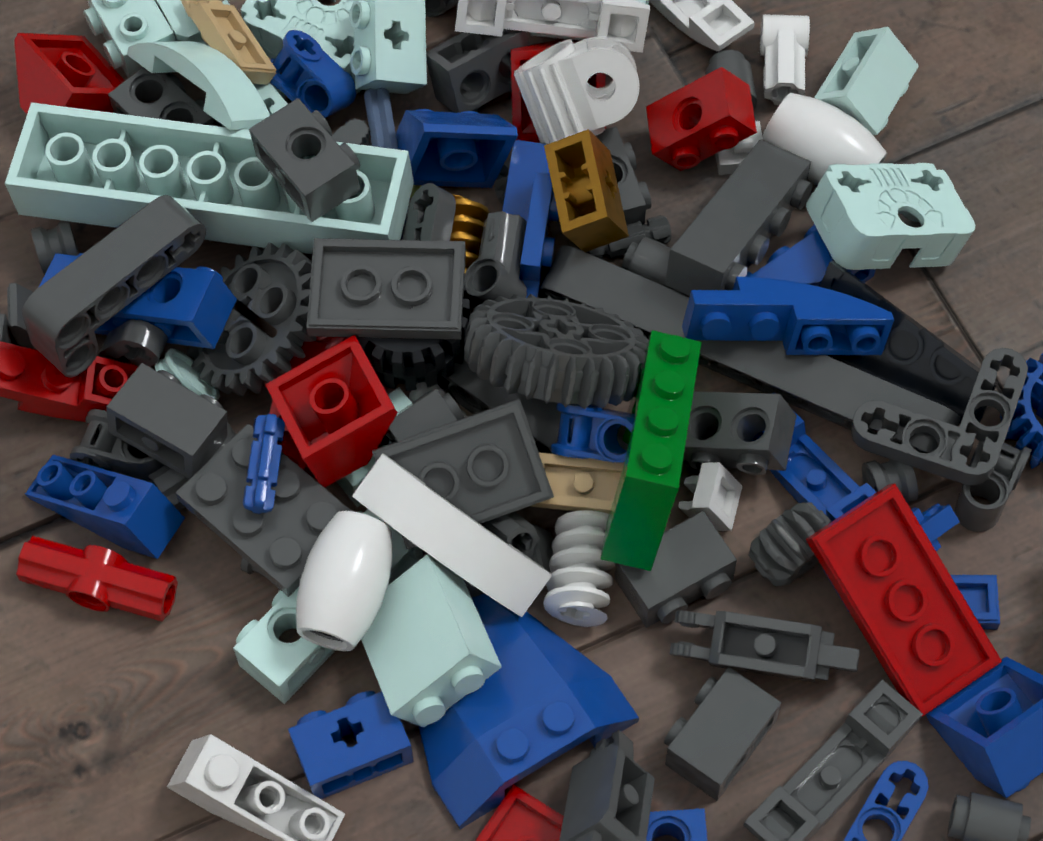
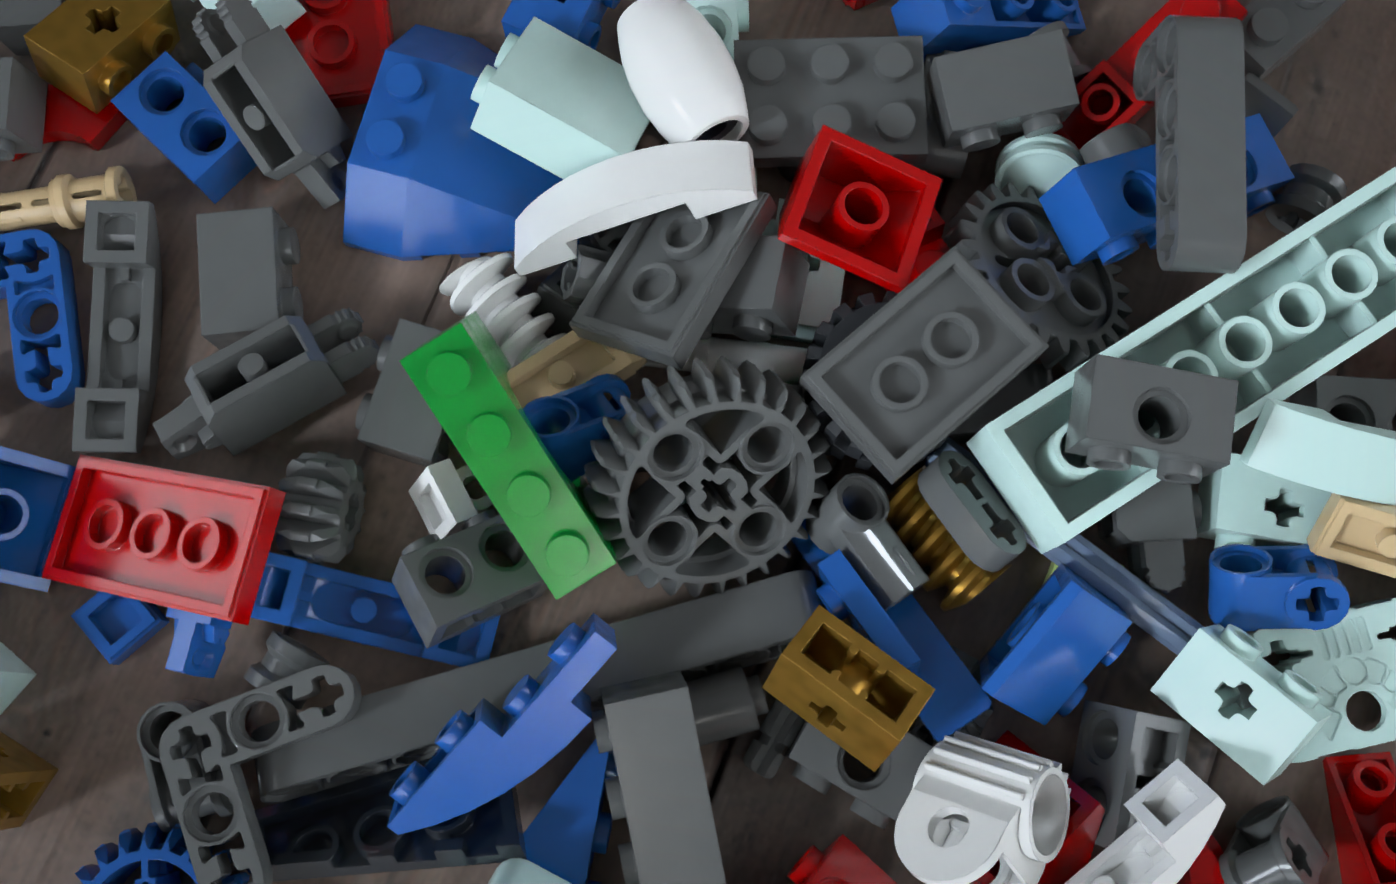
camera: 135 degrees right, 15 degrees up
(264, 464) = (862, 107): blue axle -> none

